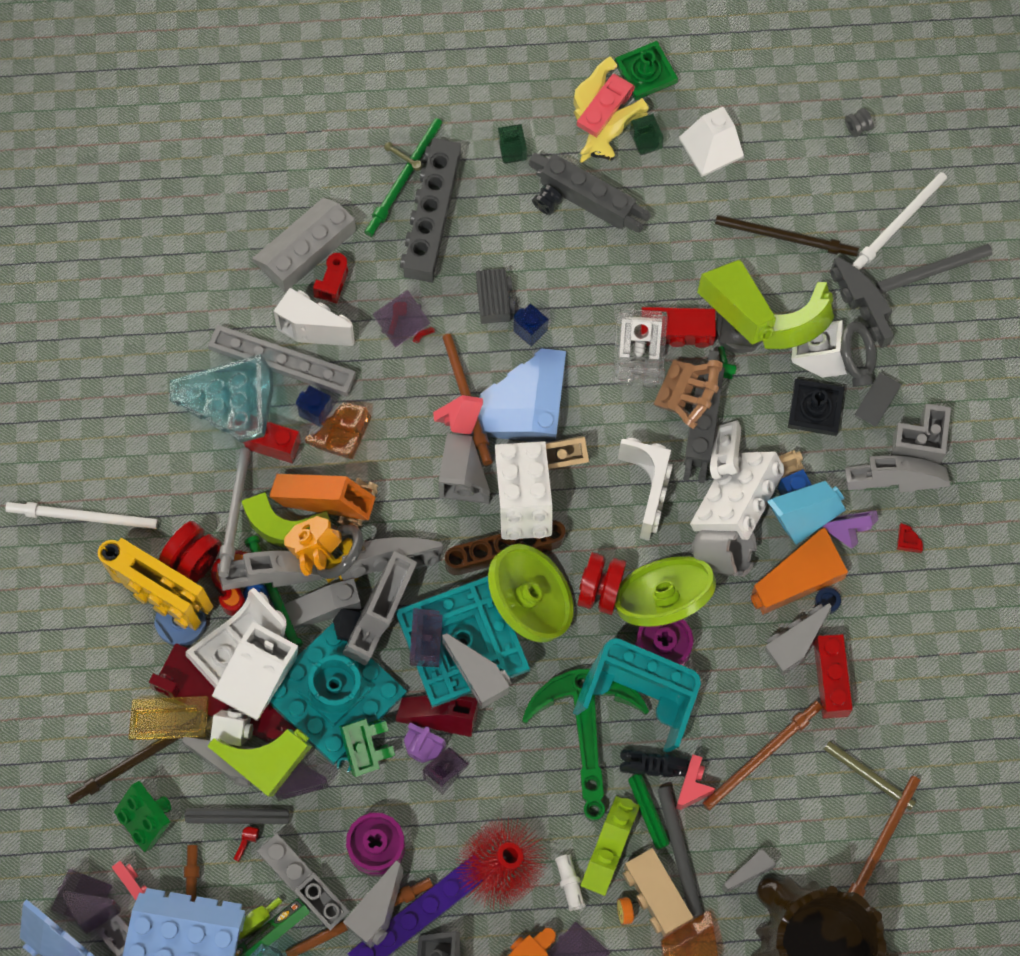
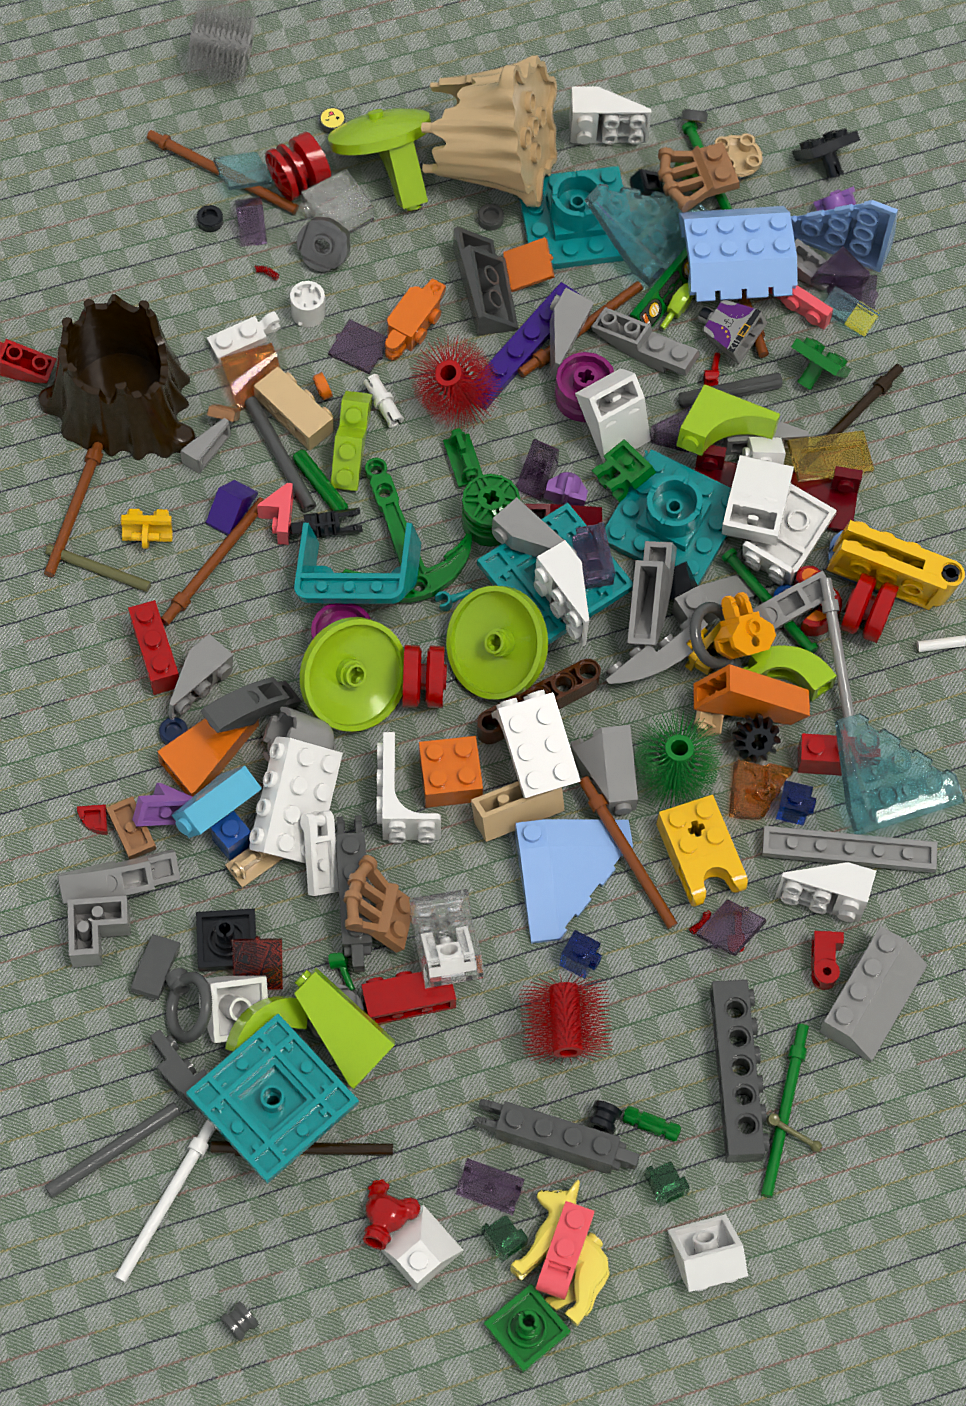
camera: 165 degrees right, 5 degrees down
(92, 872) = (852, 311): none -> clear light blue tile
(216, 873) = (732, 327): none -> torso
(329, 462) = (766, 737): none -> black gear
(361, 799) = (615, 411): none -> white slope
(404, 455) = (676, 761): none -> green piece
(406, 380) = (701, 856): none -> yellow brick
(460, 414) = (629, 822): coral slope -> none
(463, 612) = (562, 583): none -> white slope
(493, 296) = (632, 980): dark grey brick -> none
(496, 89) = (708, 1253): none -> white slope
(503, 748) = (476, 506): none -> green wheel
(509, 801) = (462, 457): none -> green hinge
(510, 190) = (651, 1123): none -> green axle
(554, 667) = (450, 598): none -> teal hand
(559, 263) = (565, 1020): none -> red piece
(597, 501) = (450, 771): none -> orange brick
(647, 173) = (490, 1186): none -> clear purple hinge
(725, 903) = (221, 411): none -> medium nougat tile
(733, 169) = (386, 1214): none -> red animal
(735, 807) = (230, 506): none -> dark purple slope
(759, 585) = (250, 703): none -> dark grey slope
(794, 377) = (259, 958): none -> clear red piece
(807, 254) = (265, 1070): none -> teal piece
(830, 804) = (147, 527): none -> yellow hips
(884, 530) = (134, 838): none -> medium nougat plate

